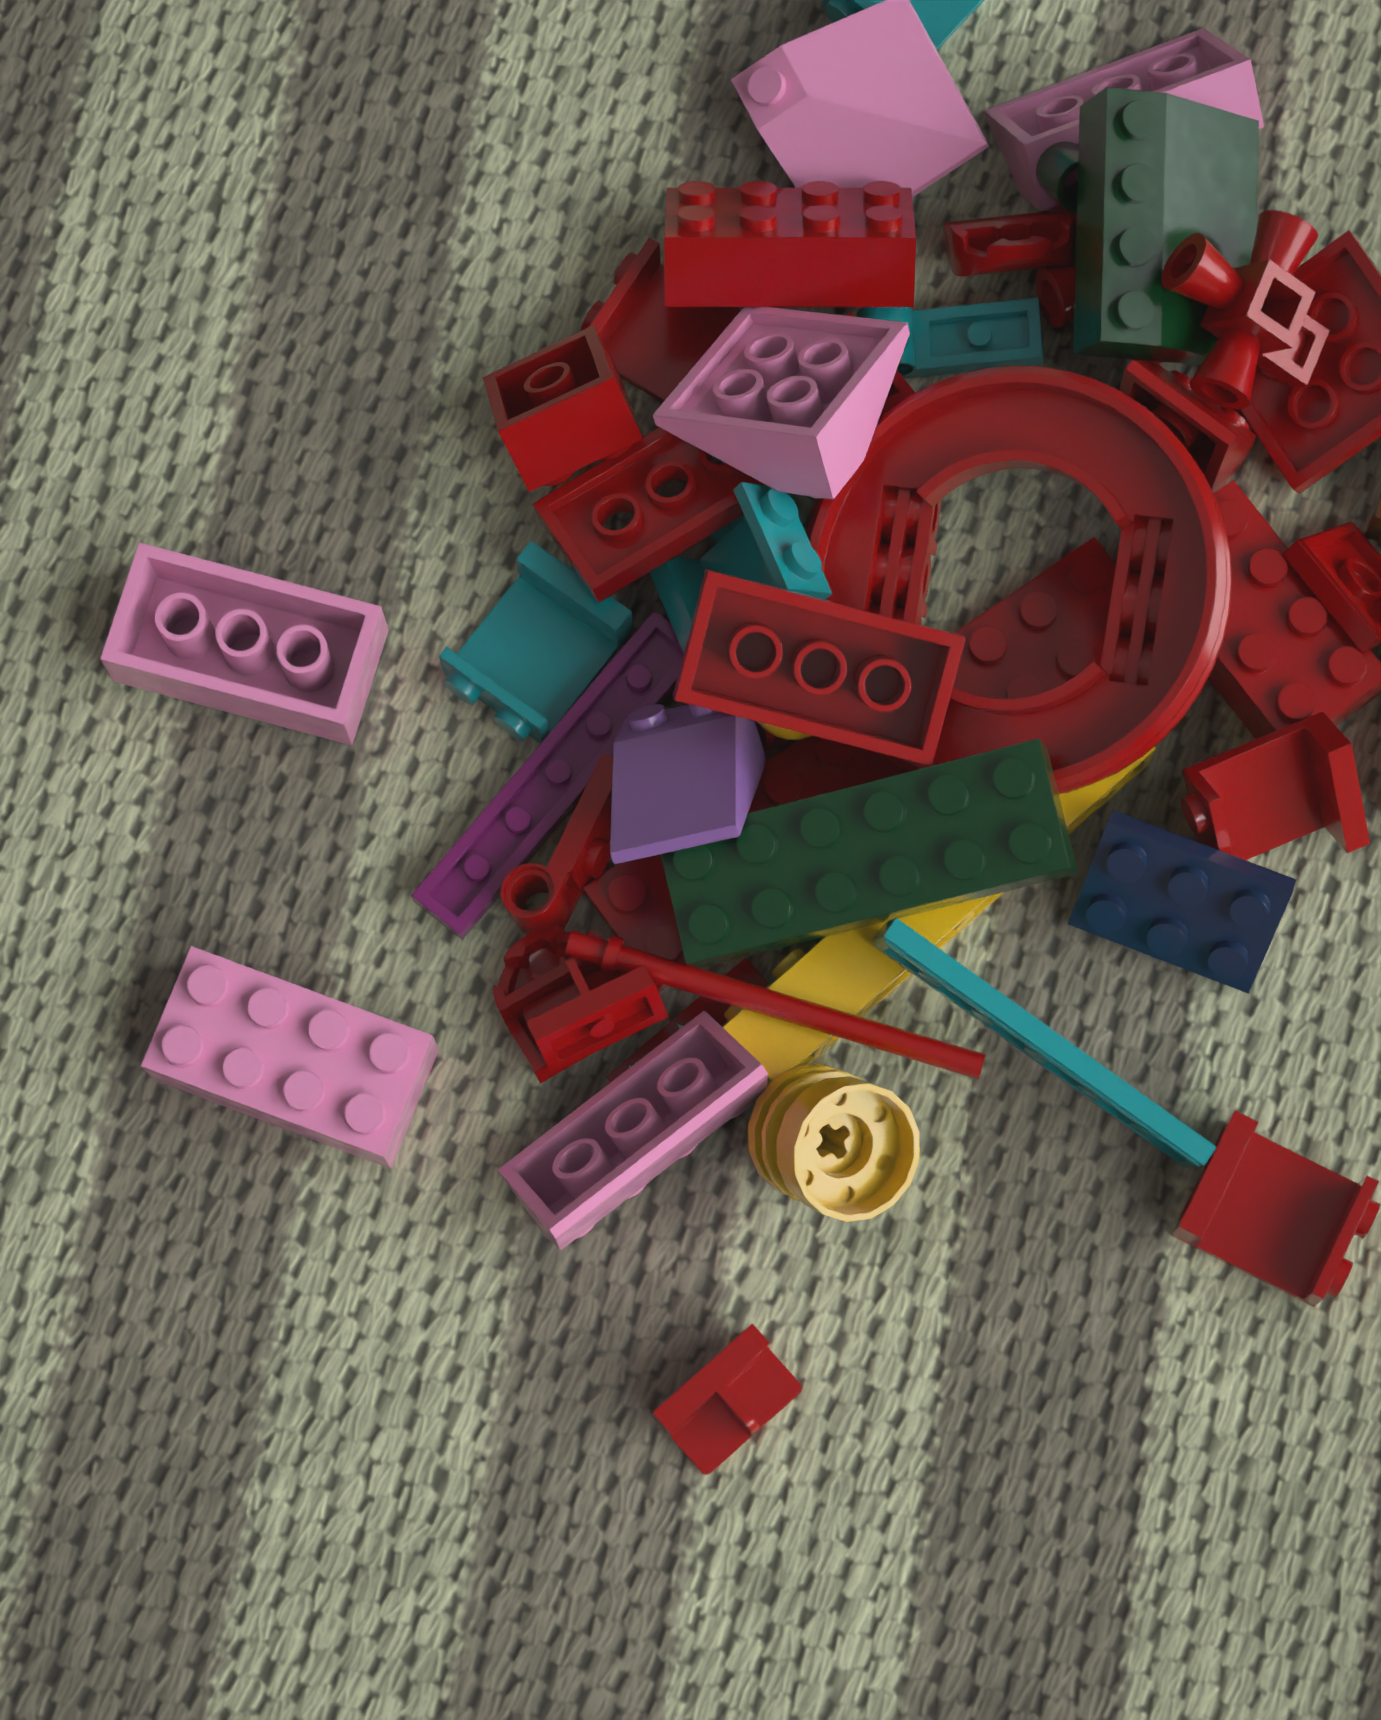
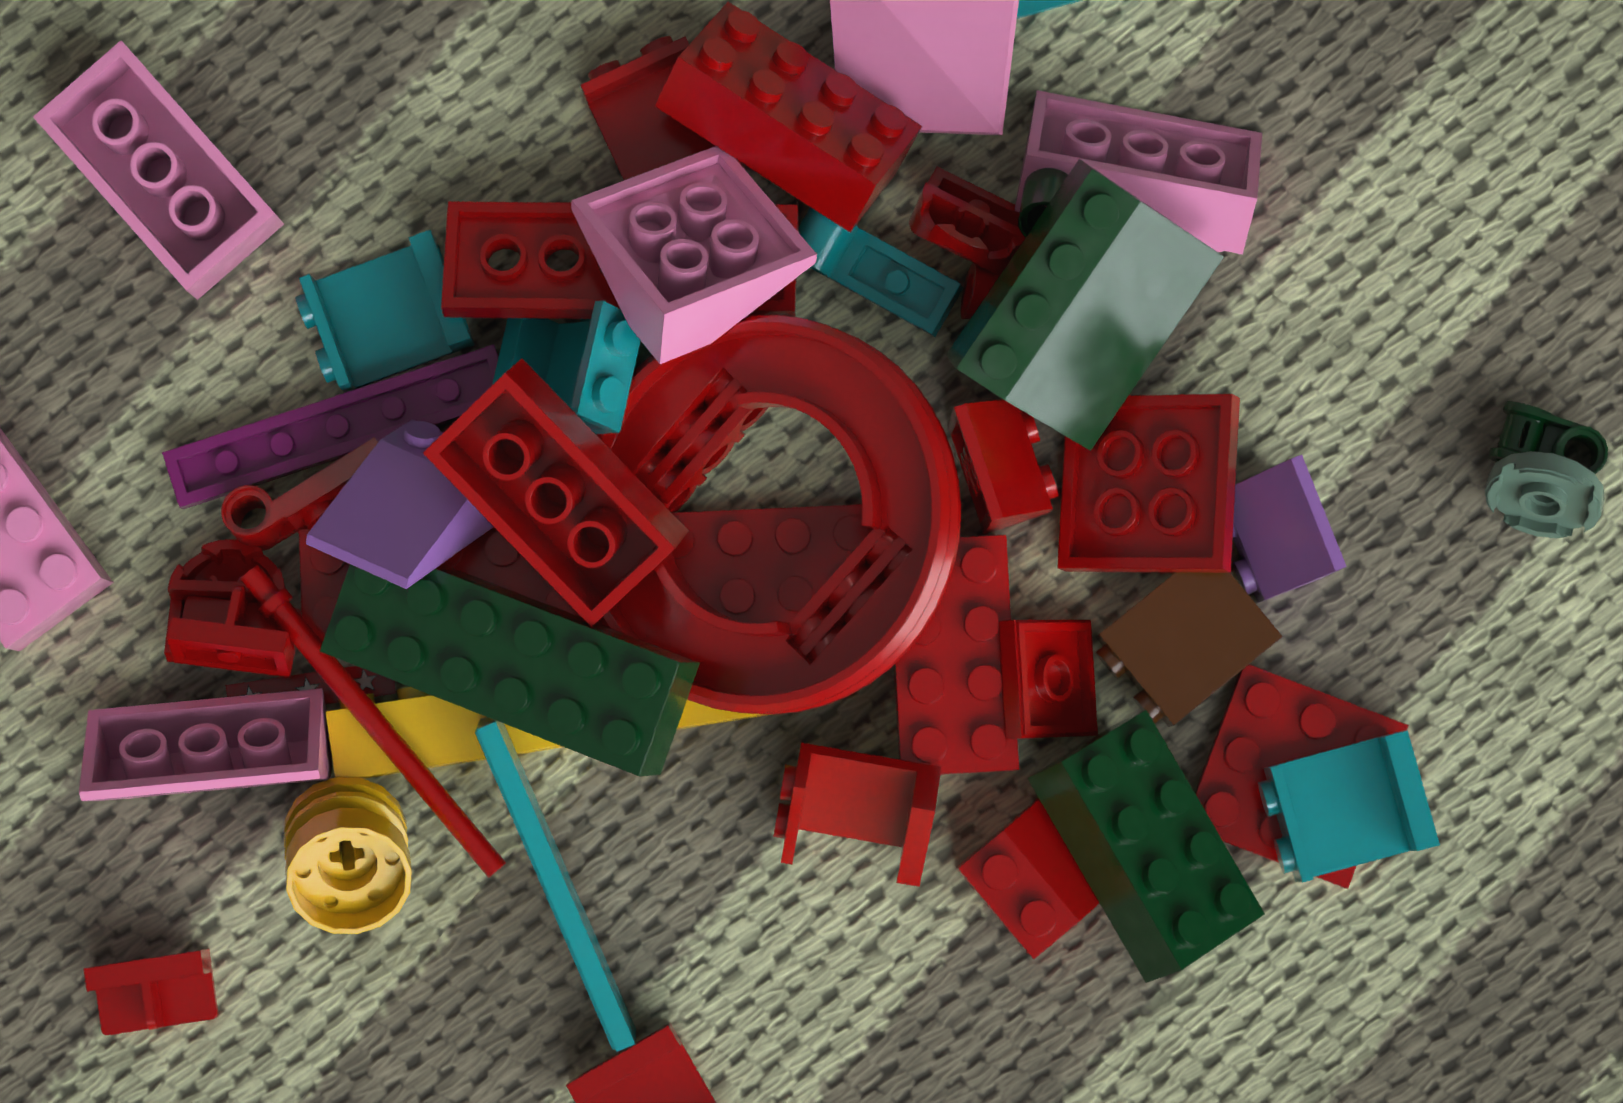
camera: 30 degrees right, 10 degrees up
(562, 409) = (519, 138): red brick -> none
(1181, 901) = (739, 839): dark blue plate -> none
(1251, 309) = (1097, 414): red brick -> none

